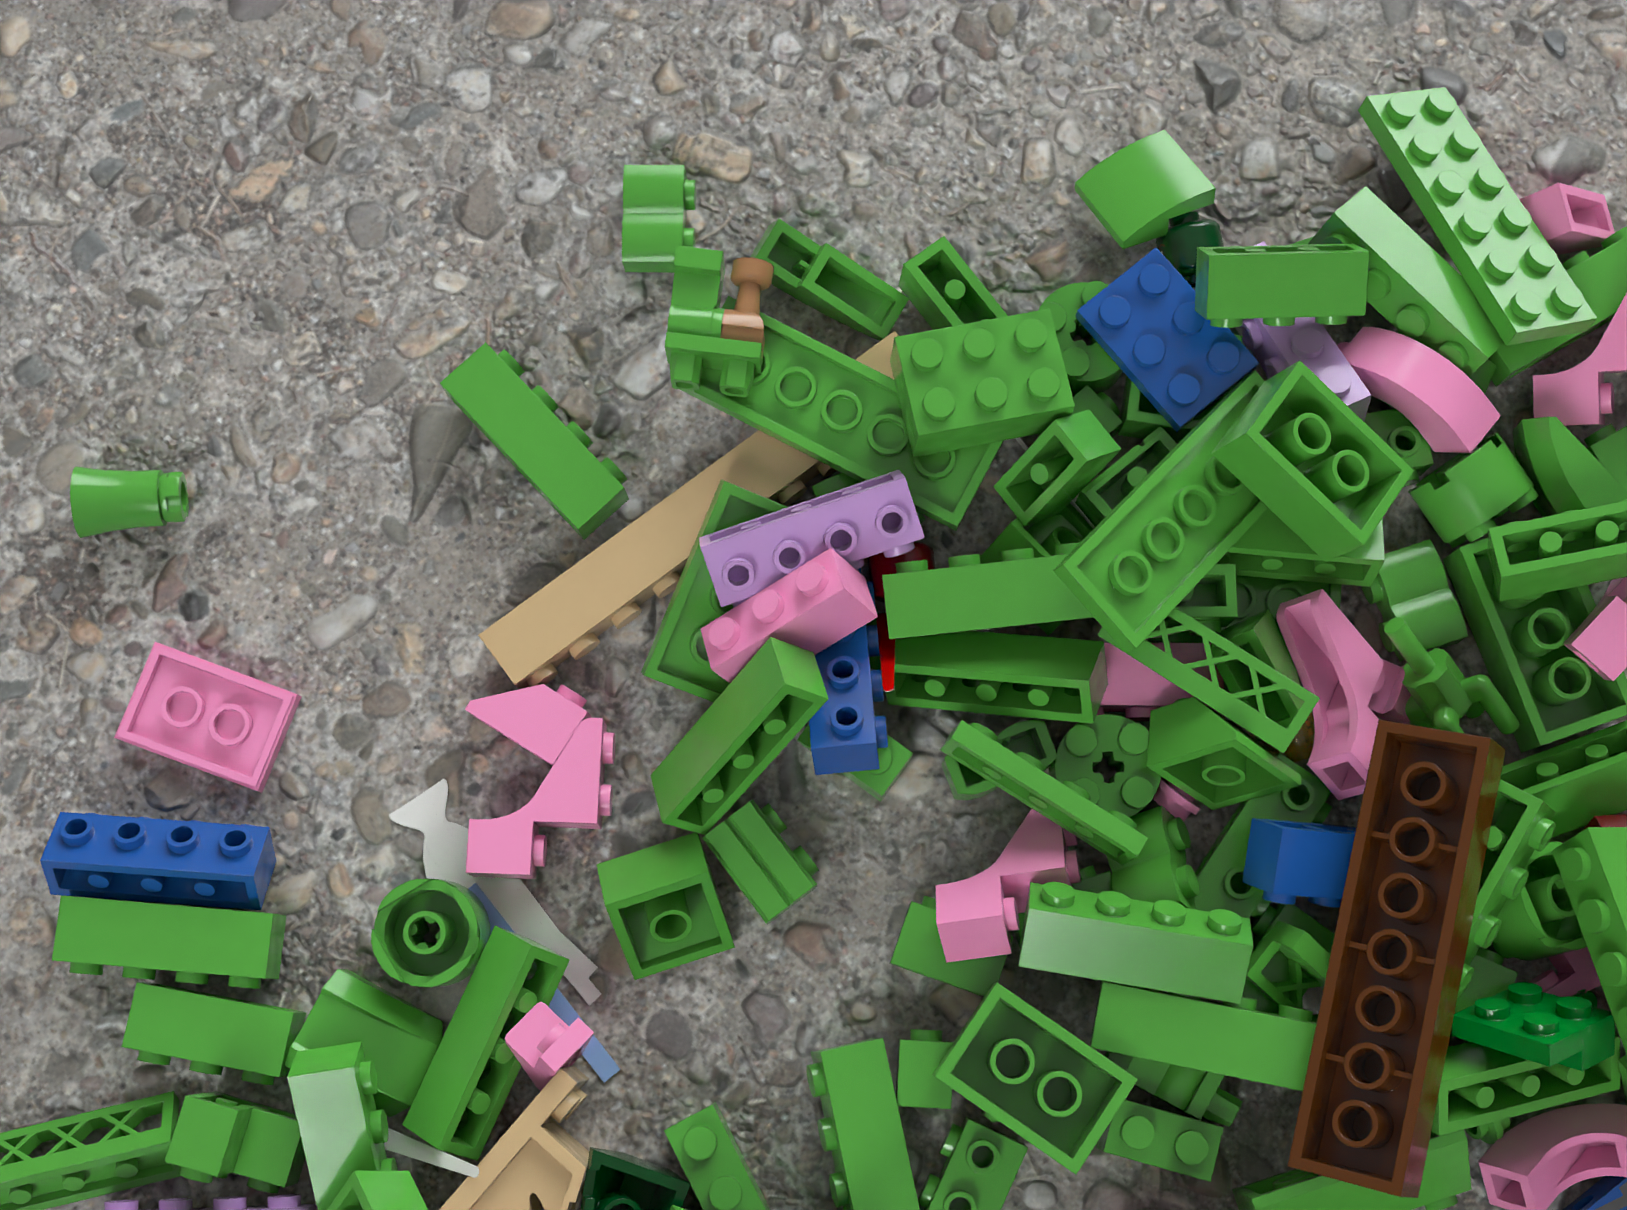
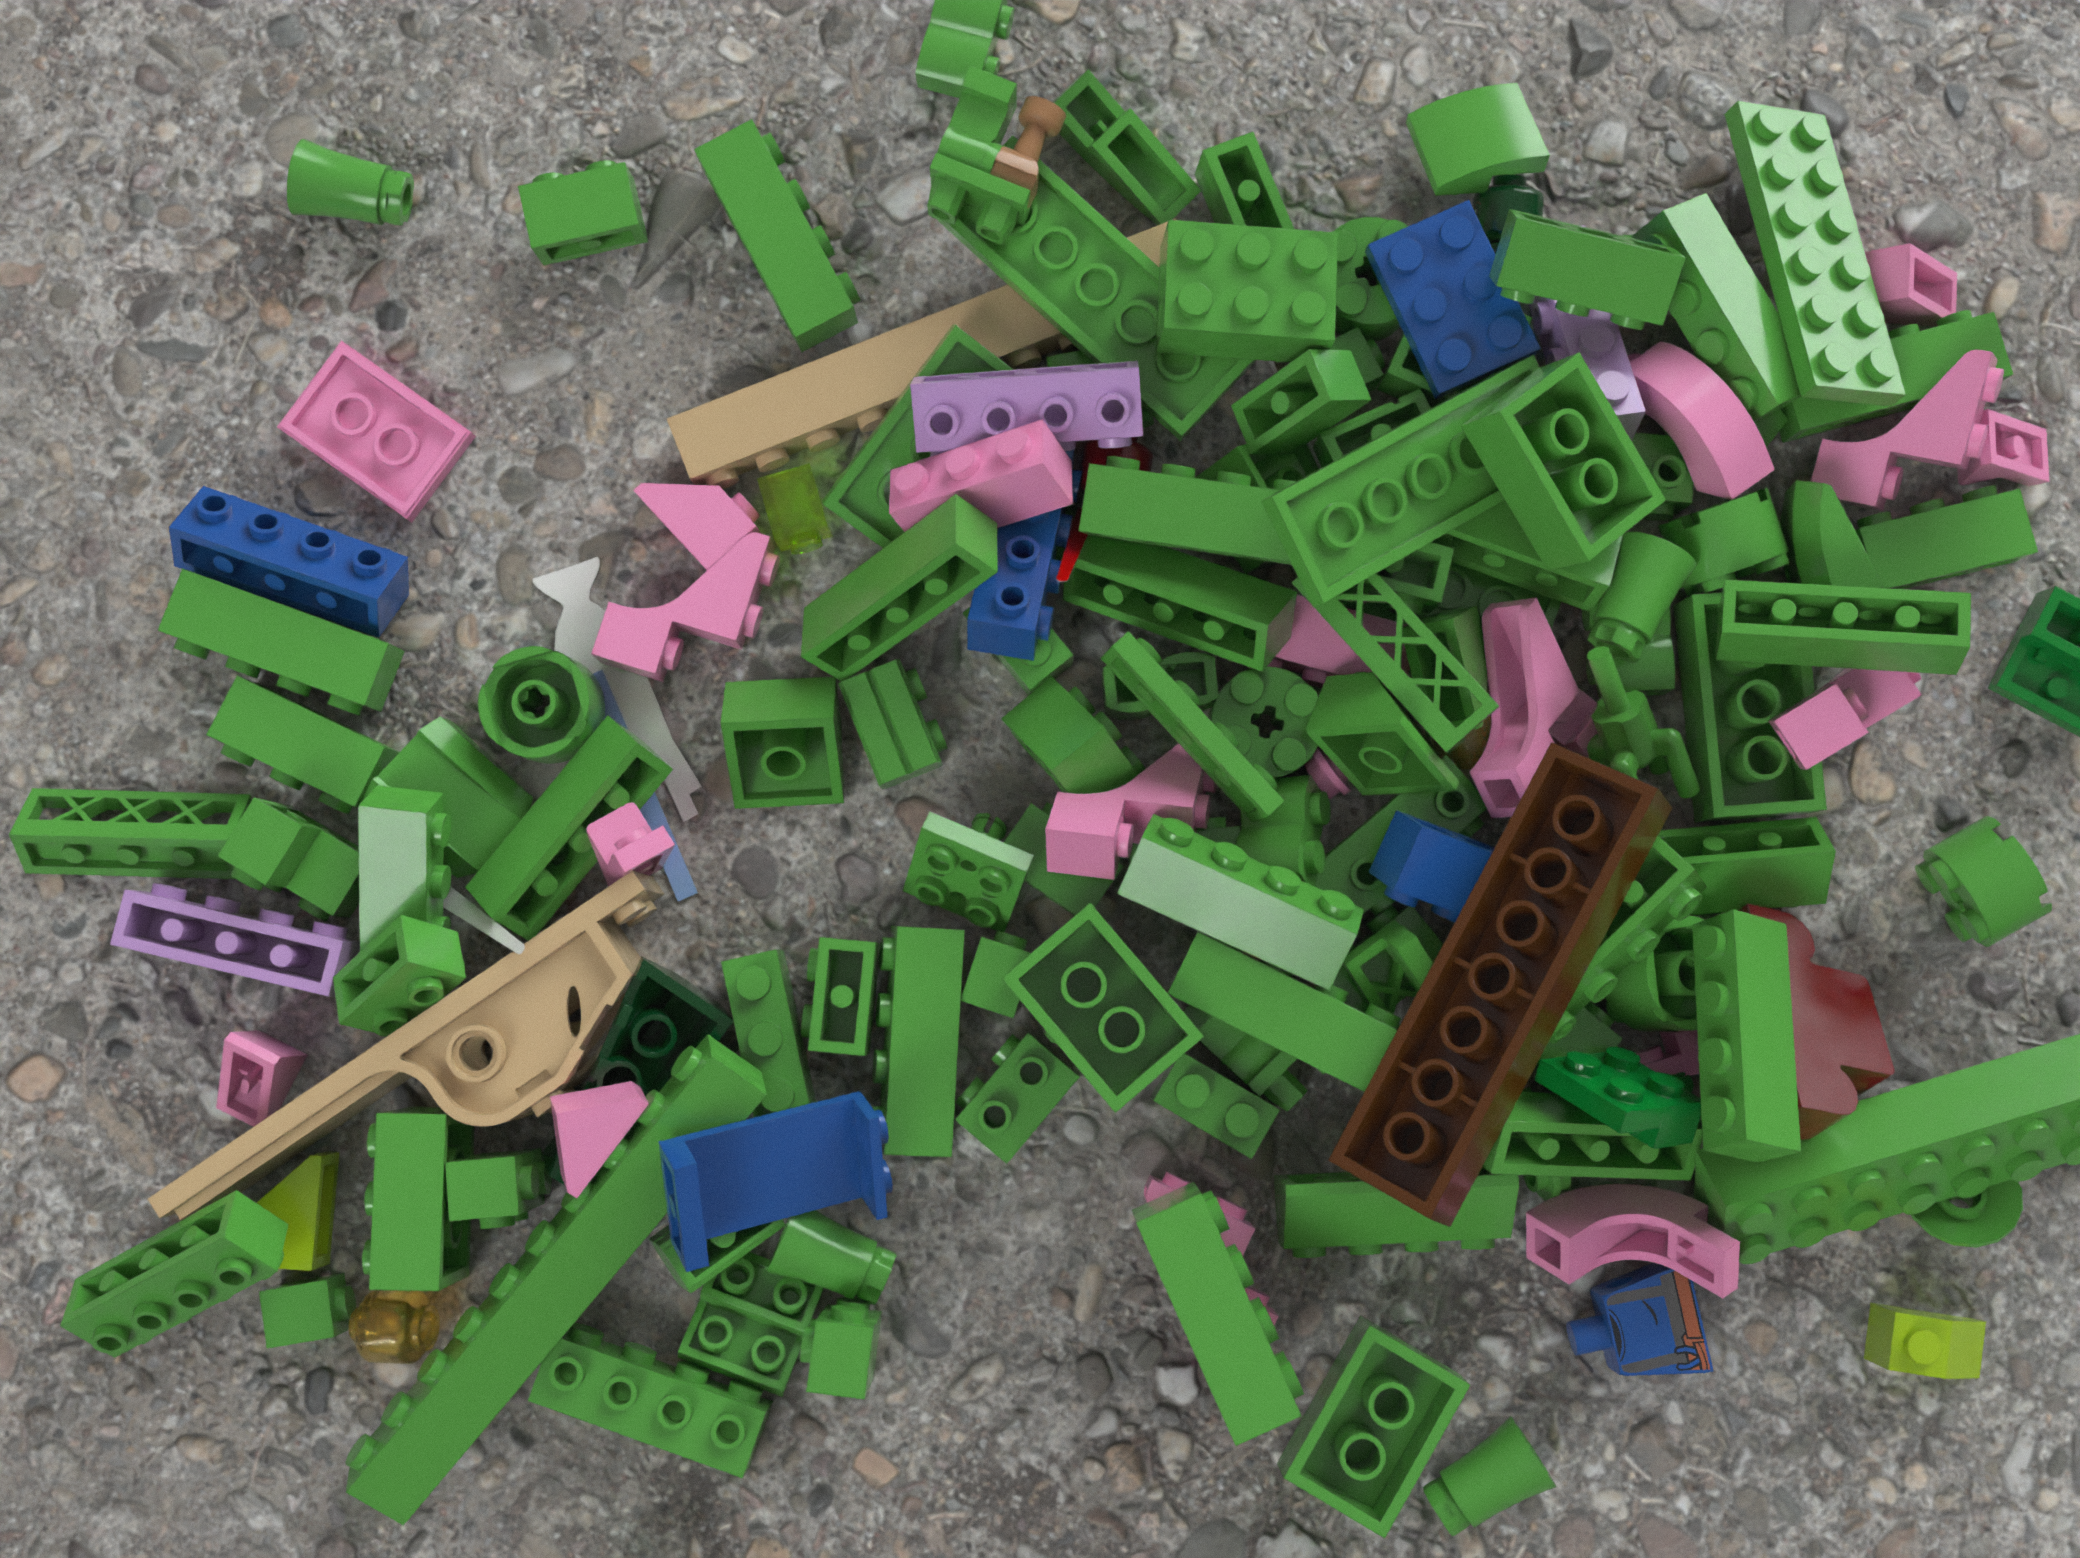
camera: 15 degrees right, 5 degrees up
(350, 466) = (582, 212): none -> bright green brick
(618, 686) = (795, 509): none -> clear neon green brick
(786, 1132) = (842, 997): none -> bright green brick
(871, 980) = (968, 870): none -> bright green plate
(932, 835) = (1070, 742): none -> bright green brick
(1414, 559) = (1640, 592): none -> bright green plant

